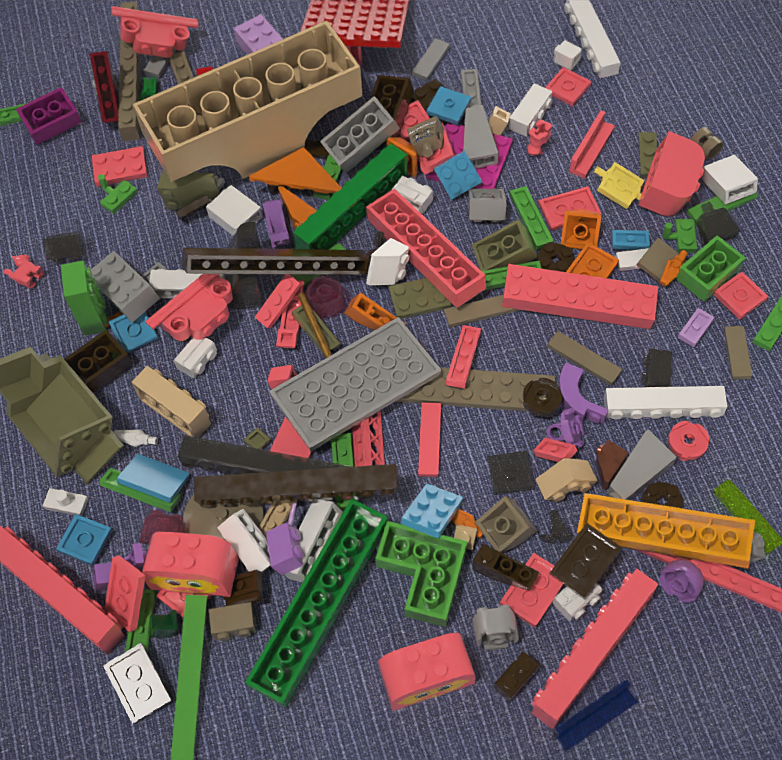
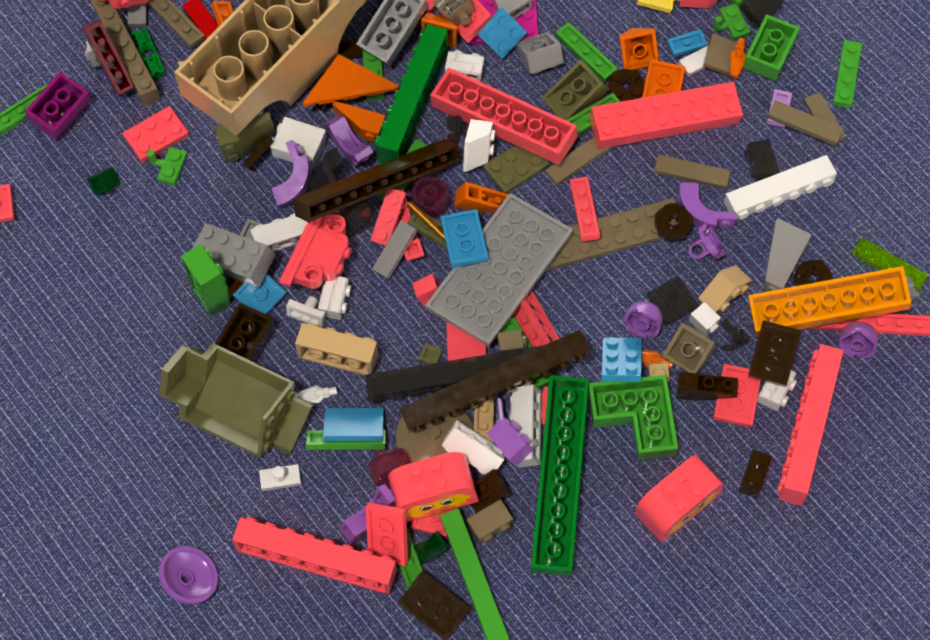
camera: 25 degrees left, 5 degrees up
(25, 272) = (120, 274): coral animal -> none
(54, 189) = (103, 180): none -> dark green panel
(64, 245) = (148, 235): clear smoke brick -> none
(84, 540) = (317, 504): dark azure plate -> none
(165, 361) = (306, 312): none -> white tile
(221, 232) = (299, 179): none -> medium lavender arch
(270, 332) = (395, 249): none -> light grey tile
(333, 453) = (511, 341): none -> dark tan brick
(334, 343) = (464, 238): none -> dark azure tile
(429, 440) = (587, 297): coral tile -> none
(471, 479) = (643, 319): none -> medium lavender cylinder
(495, 627) = (720, 439): light grey brick -> none
(534, 502) = (705, 319): none -> white brick
(554, 450) = (704, 266): coral plate -> none
(555, 206) = (607, 32): coral tile -> none
(595, 716) = (832, 481): clear blue fence -> none
(609, 462) = (754, 260): copper slope -> none
(684, 450) = (813, 225): coral plate -> none
(715, 349) = (805, 123): none -> dark tan tile
(740, 295) = (806, 64): coral plate -> none

